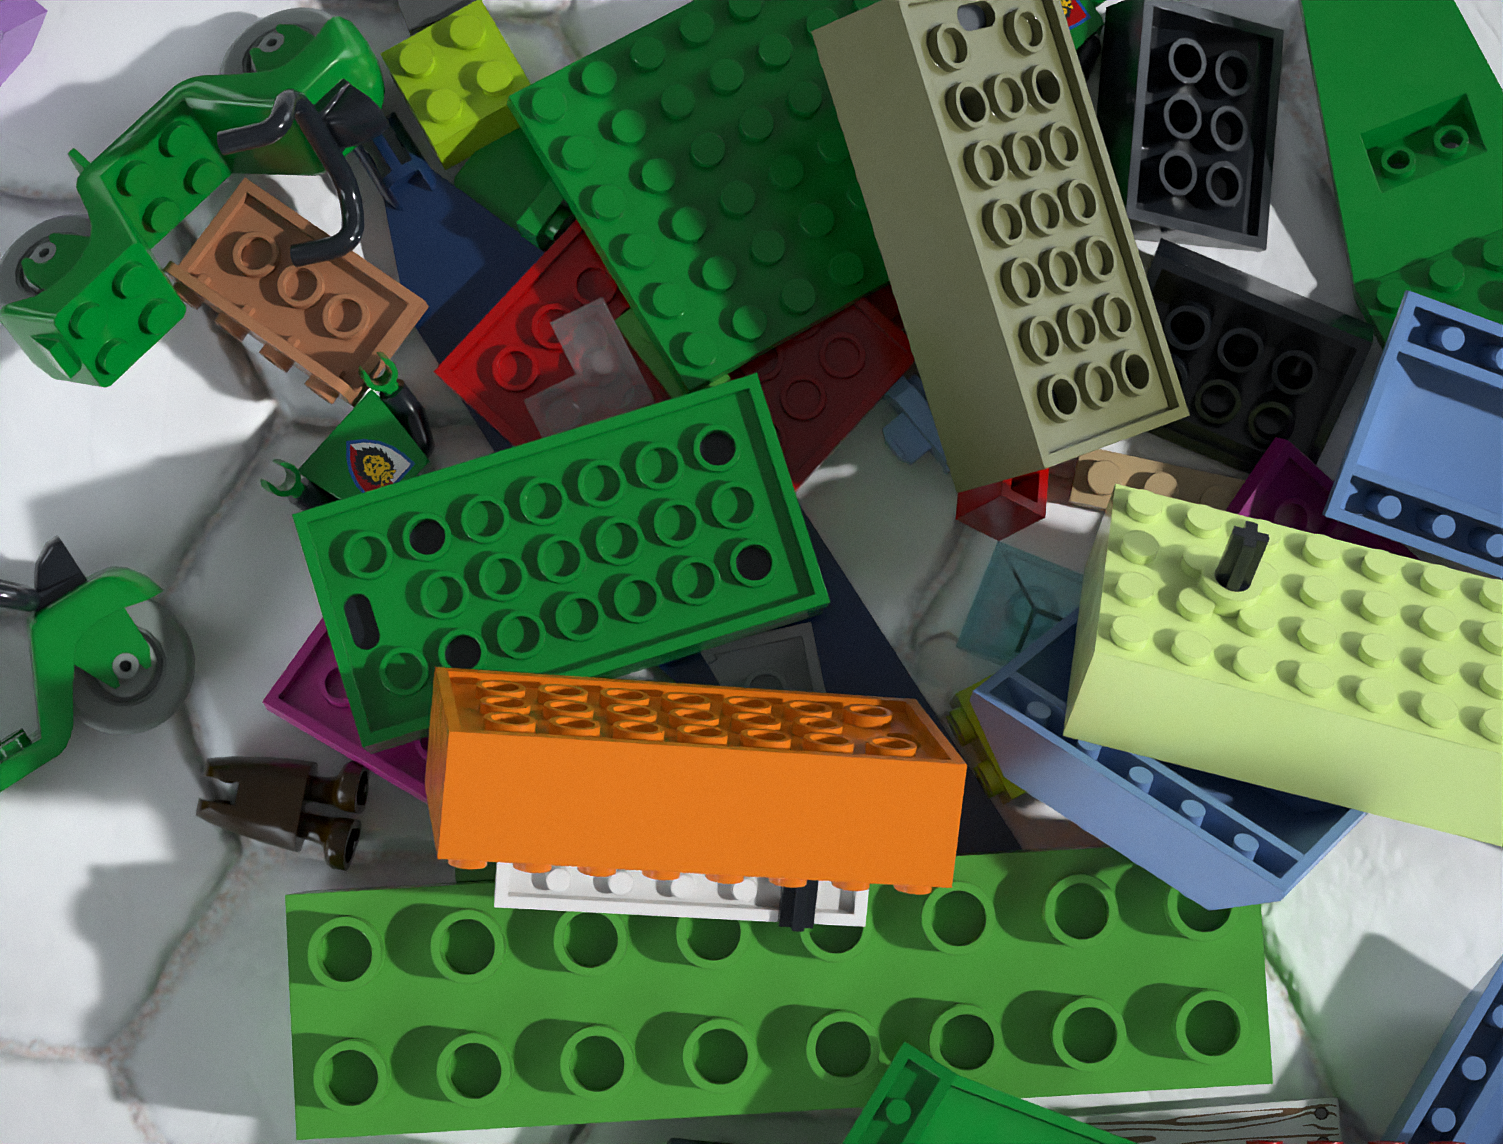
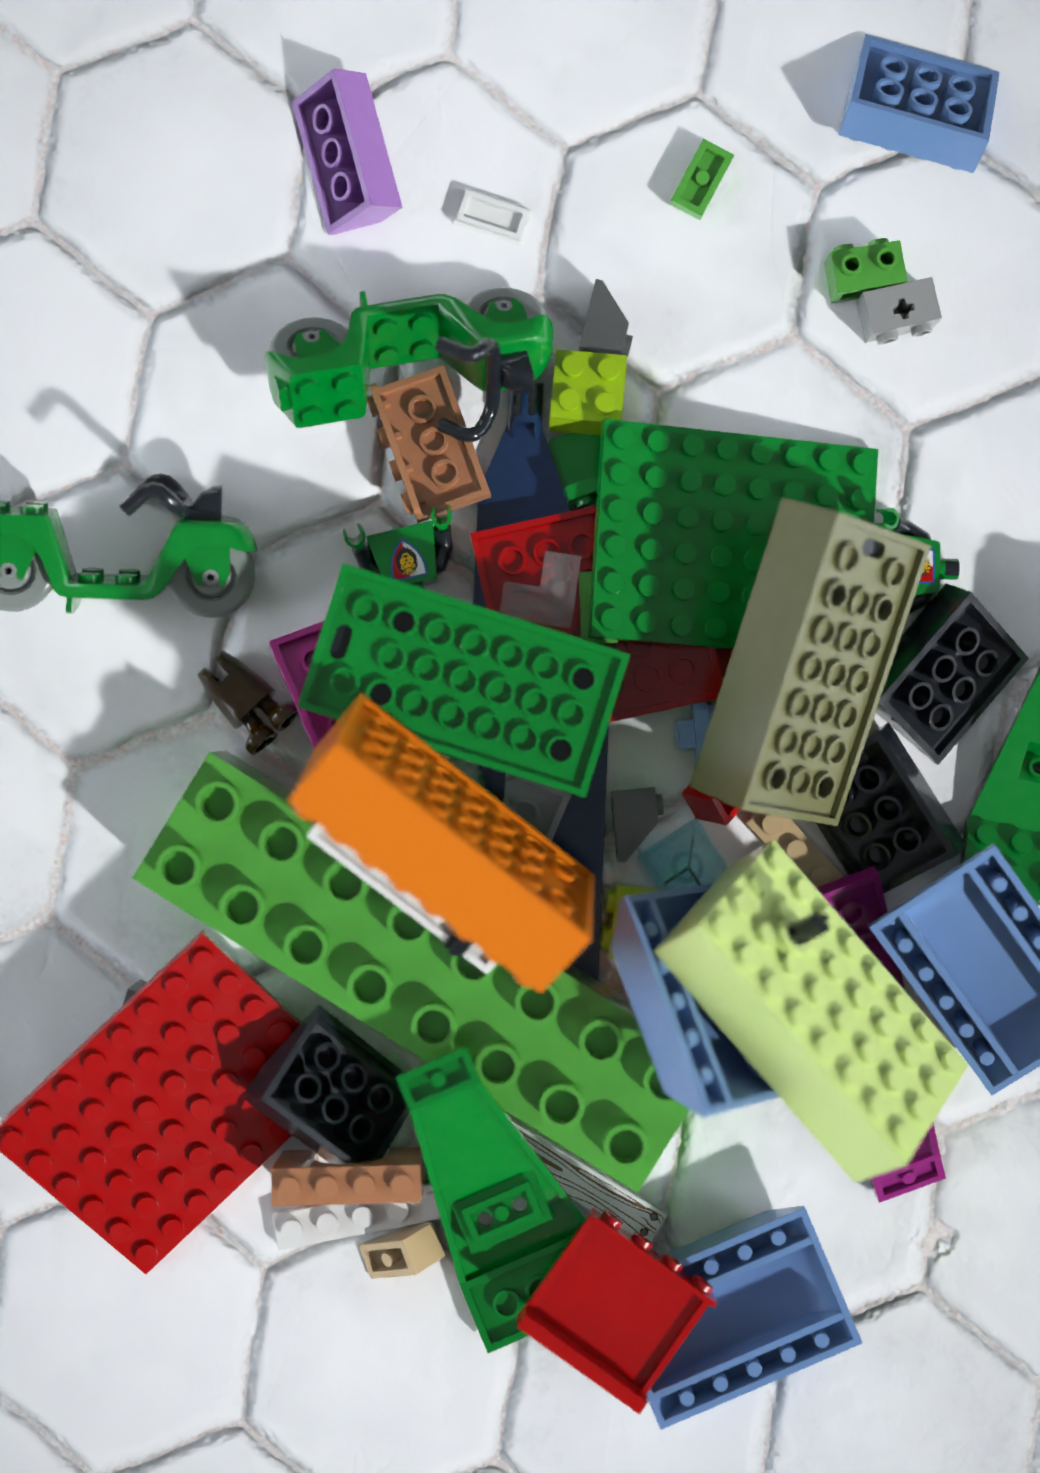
camera: 30 degrees right, 5 degrees up
(915, 597) = (634, 817): none -> dark grey slope

